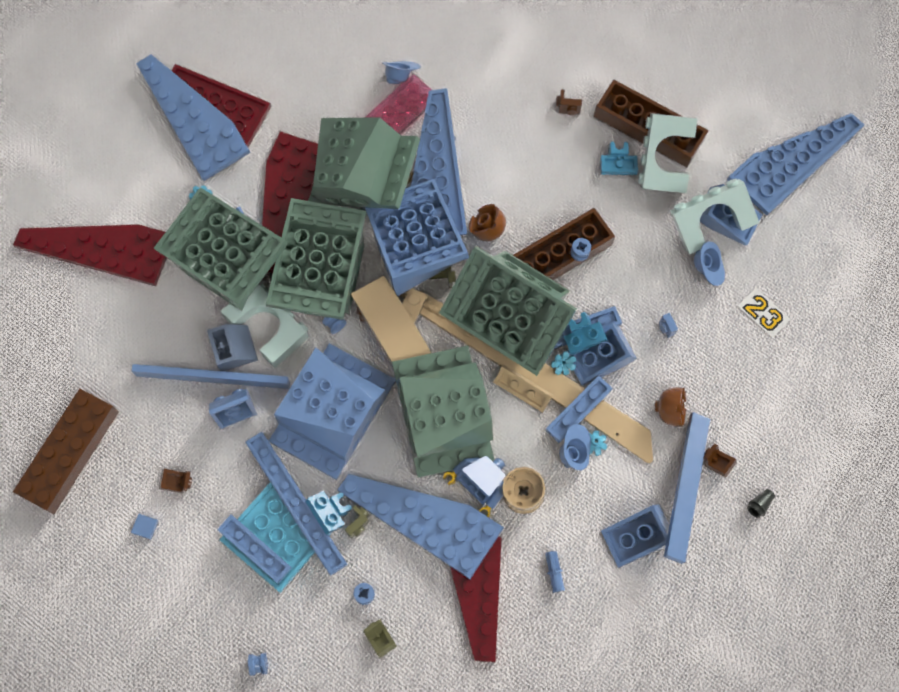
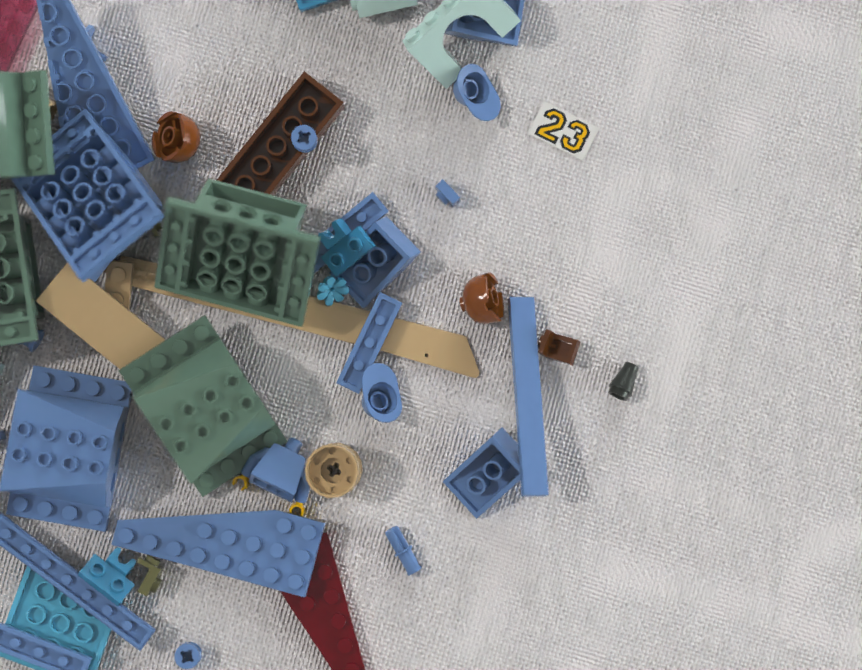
camera: 15 degrees left, 15 degrees up
(523, 388) = (292, 339): tan plate -> none
(596, 447) = (407, 370): medium azure plant -> none

